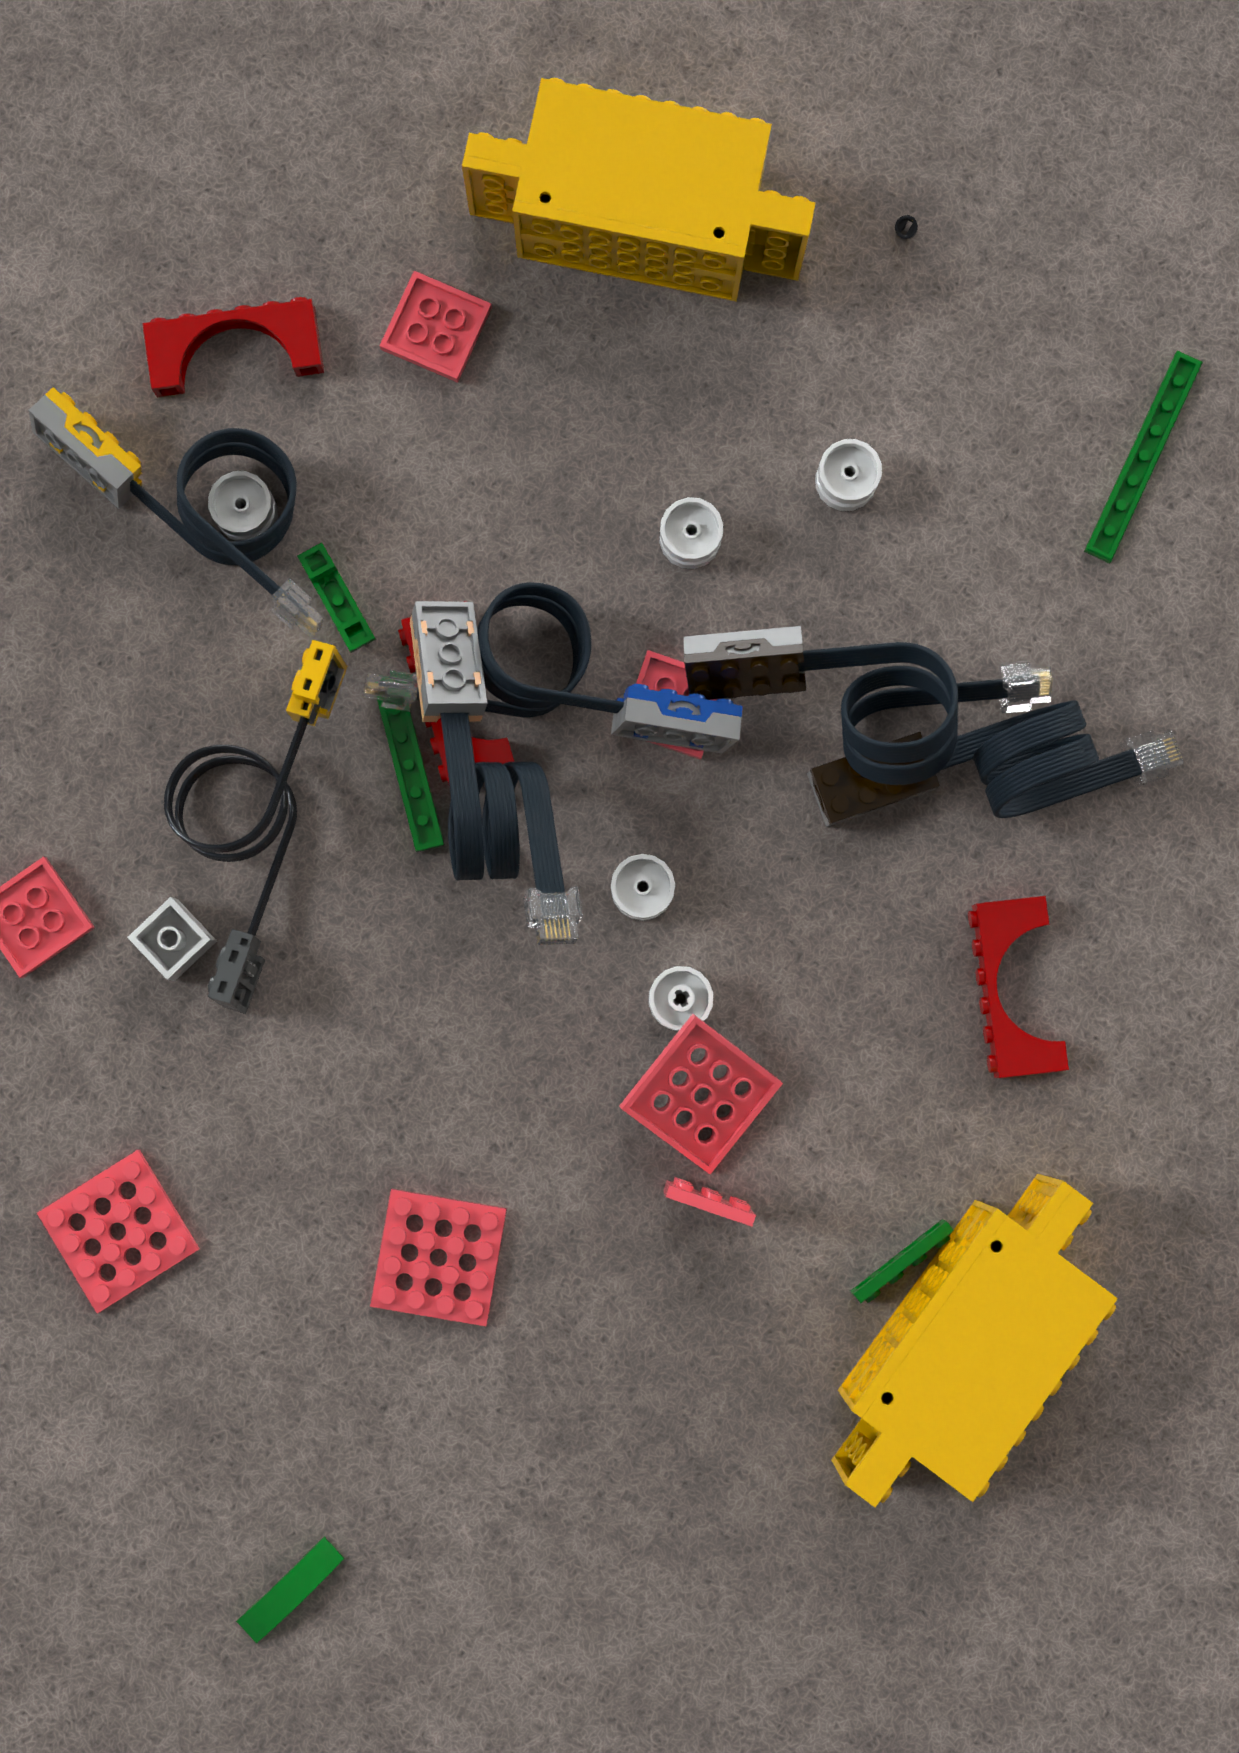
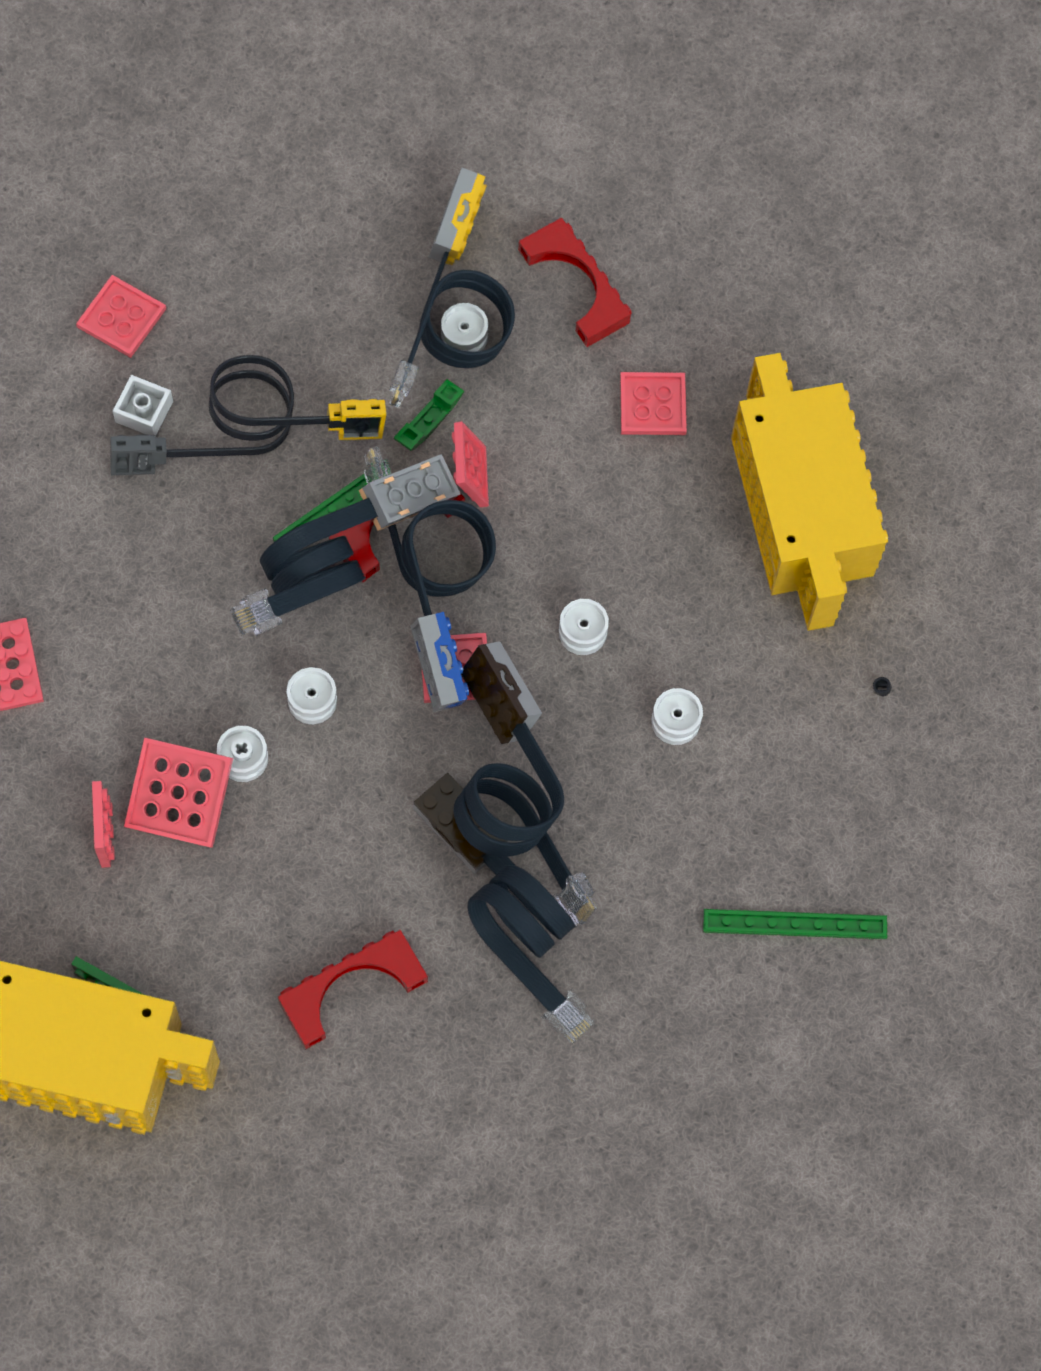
camera: 65 degrees right, 15 degrees down
(430, 574) = (470, 464): none -> coral plate

